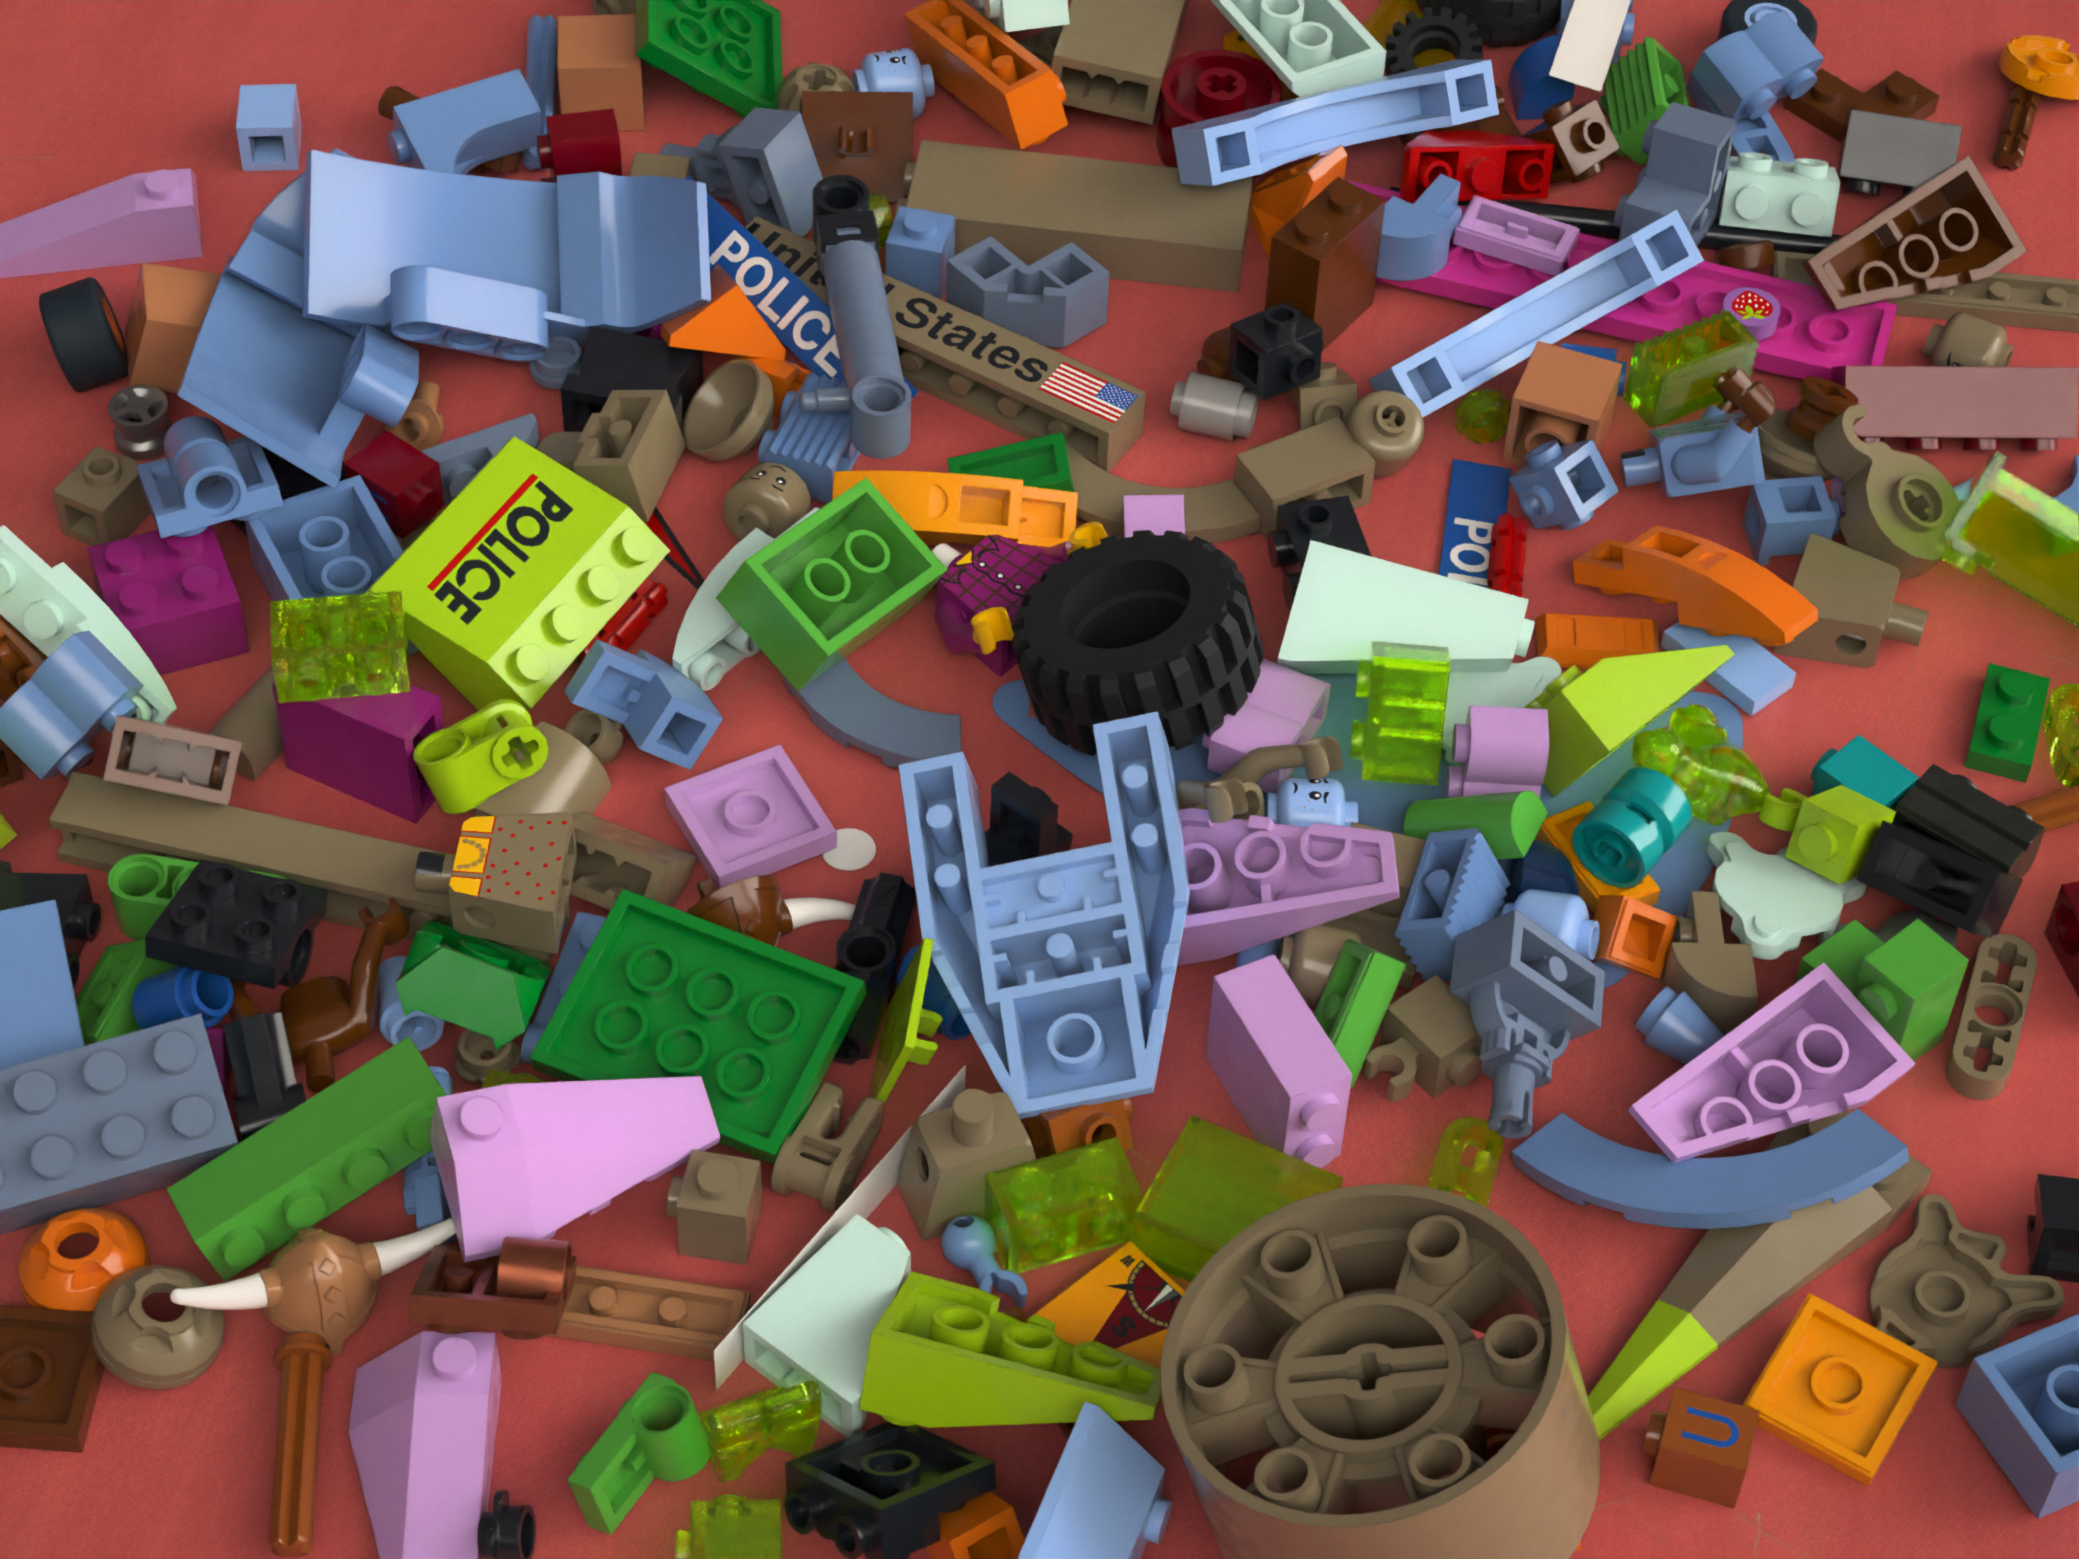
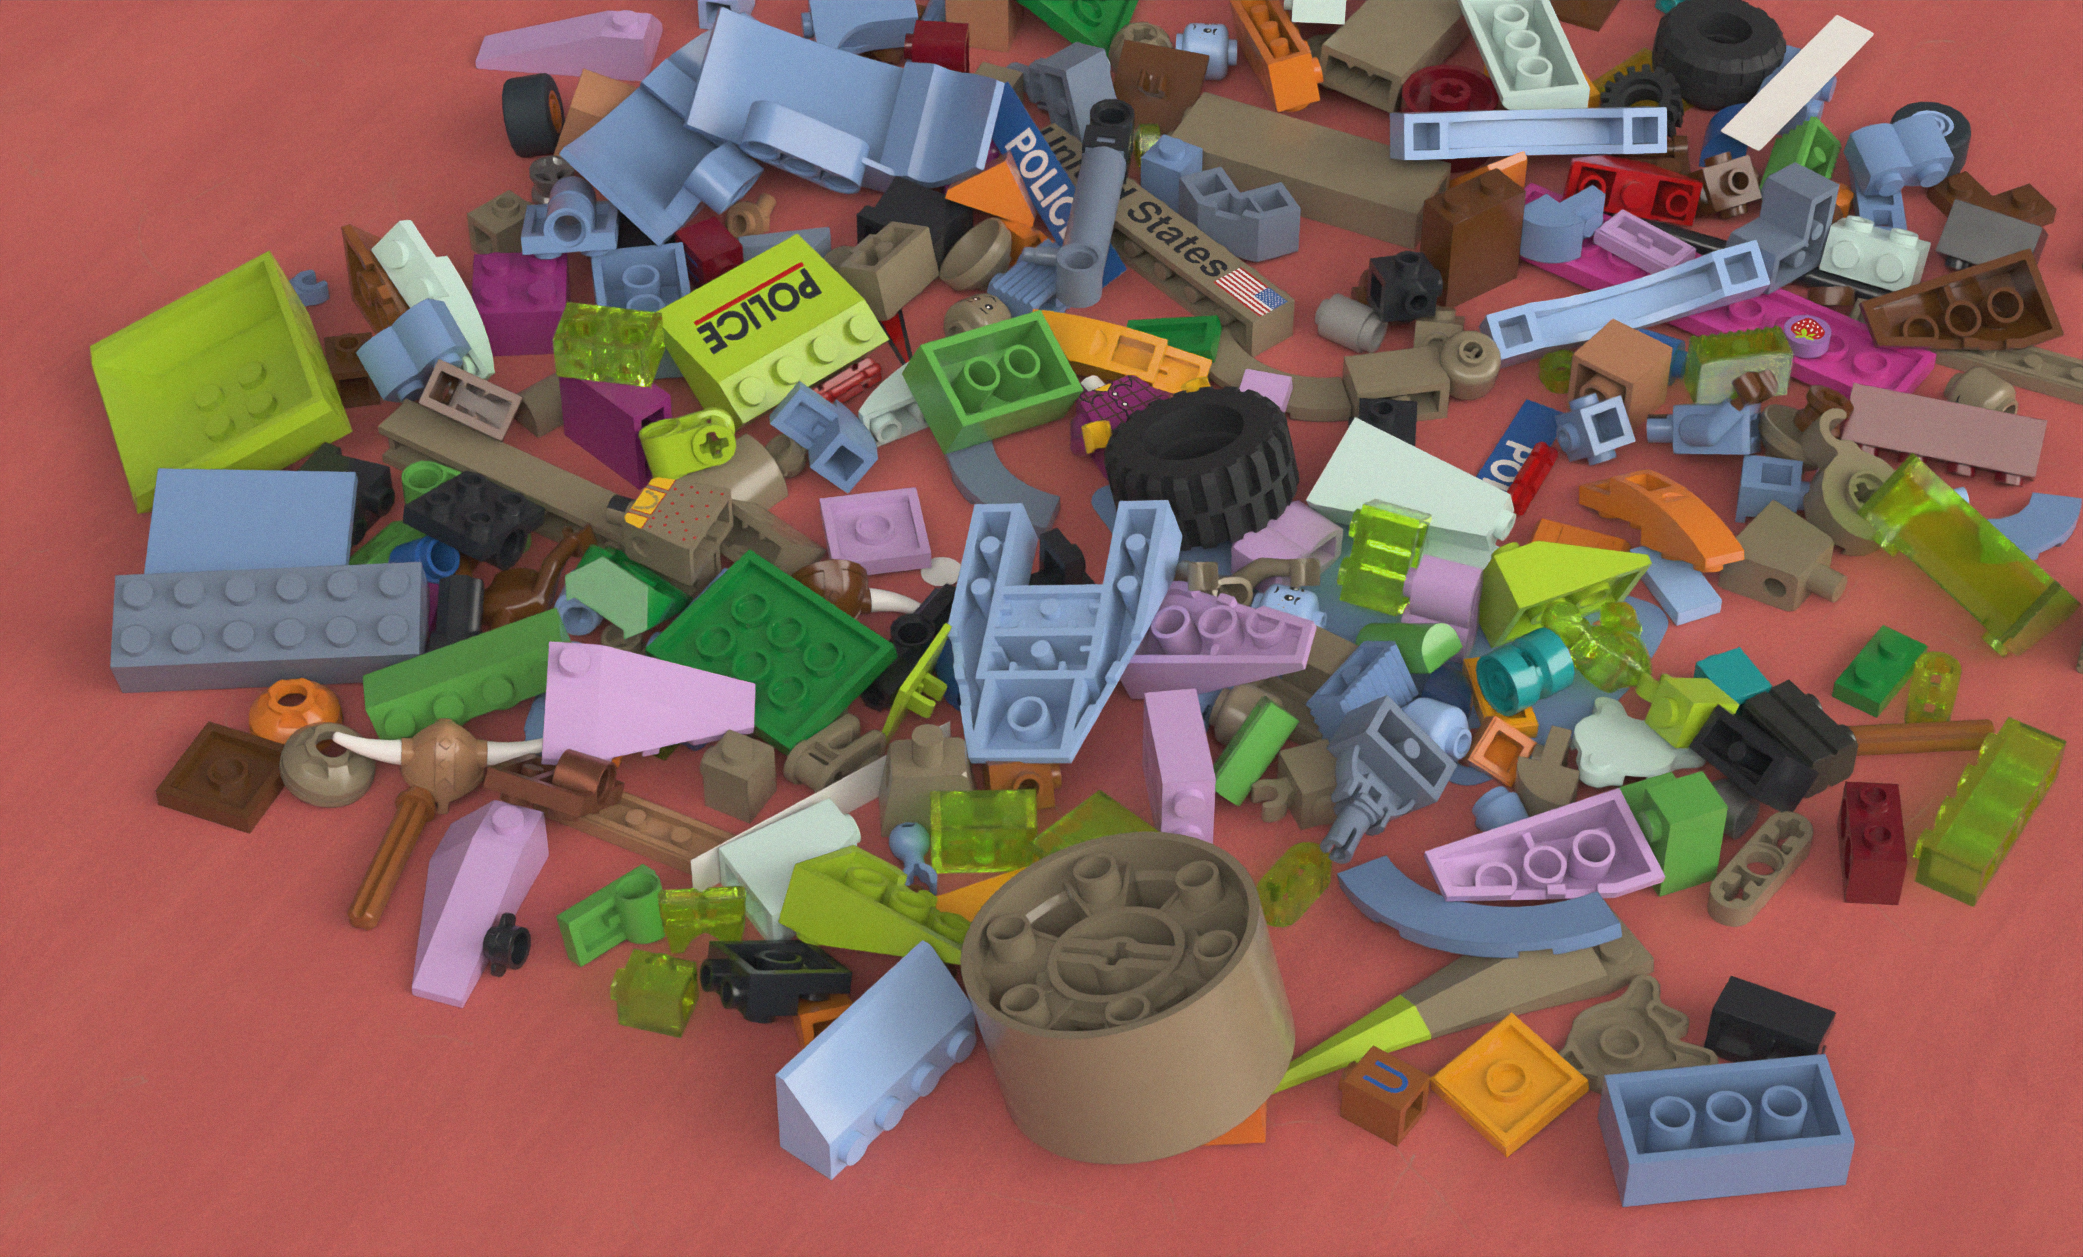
camera: 20 degrees right, 5 degrees down
(562, 359) = (869, 195): sand blue plate -> none

